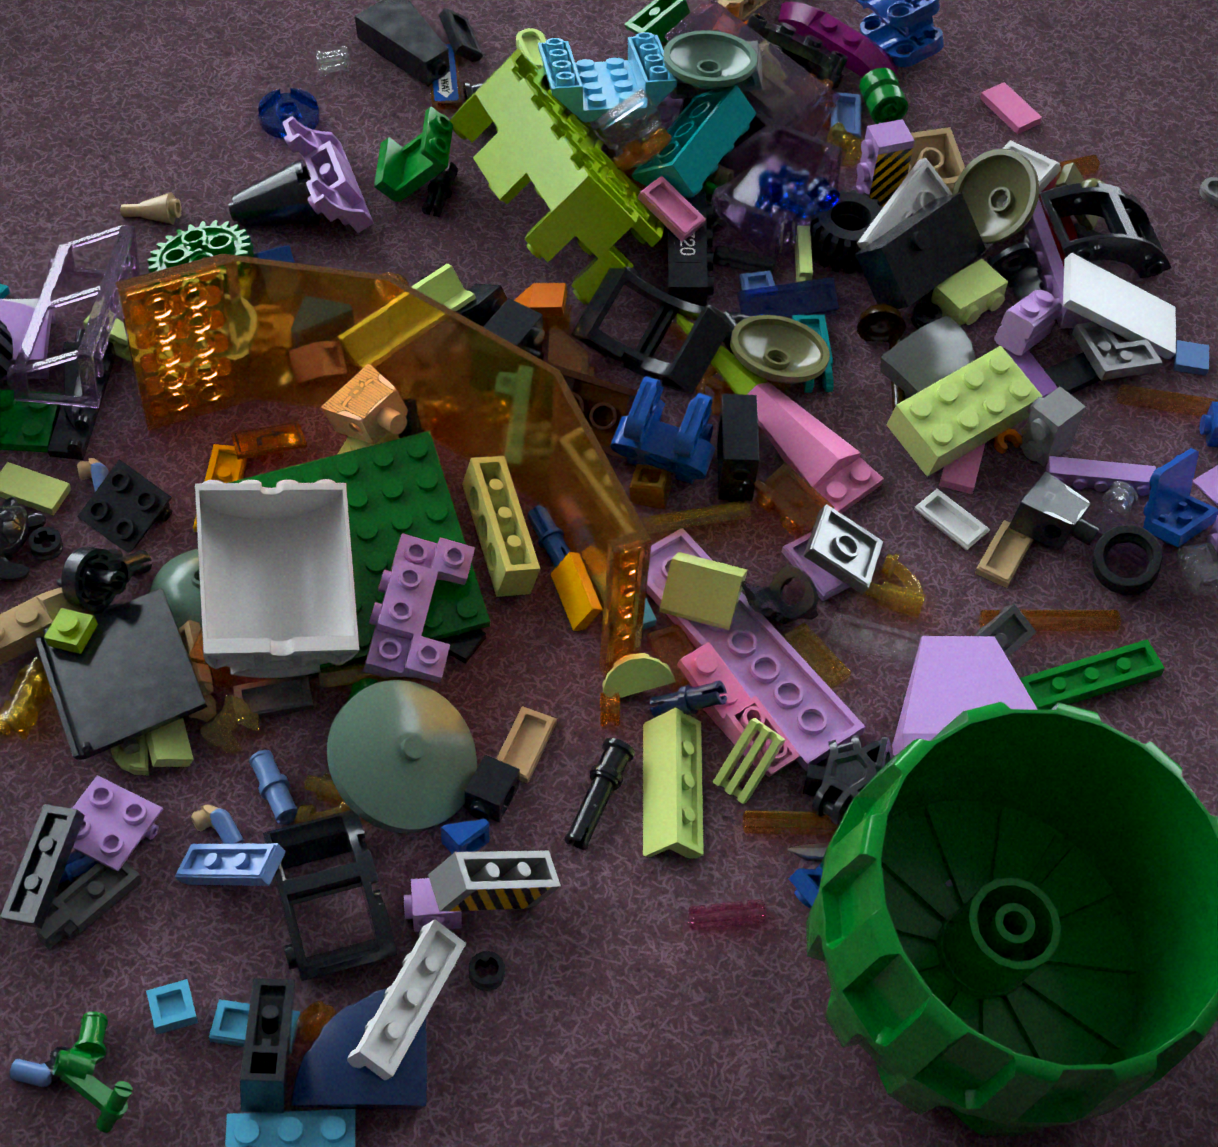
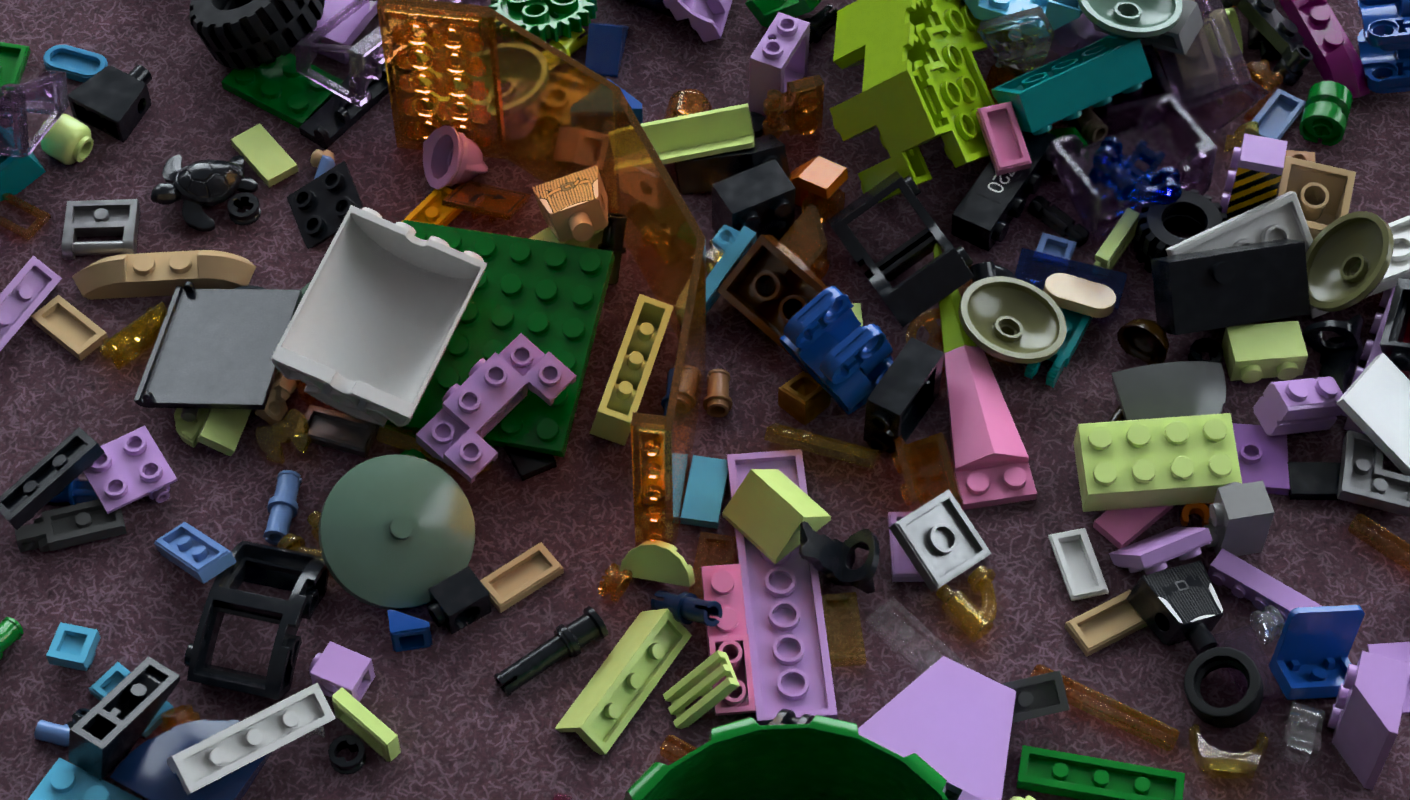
camera: 35 degrees right, 0 degrees up
(70, 630) = (204, 292): lime plate -> none
(101, 573) = (260, 254): black pin -> none
(211, 417) = (451, 158): none -> lavender piece
(219, 1086) = (58, 733): none -> medium blue arm
(220, 821) = (220, 516): medium blue arm -> none
(447, 222) = (778, 59): none -> lavender window
(484, 254) = (802, 106): none -> clear orange plate
(490, 936) = (365, 725): none -> yellowish green tile
(493, 880) = (392, 676): light grey brick -> none
(639, 153) = (1011, 69): clear orange dish -> none
(810, 308) = (1080, 295): none -> tan tile
(1011, 476) = (1154, 551): none -> lavender tile
(1161, 620) = (1225, 764): none -> clear yellow helmet

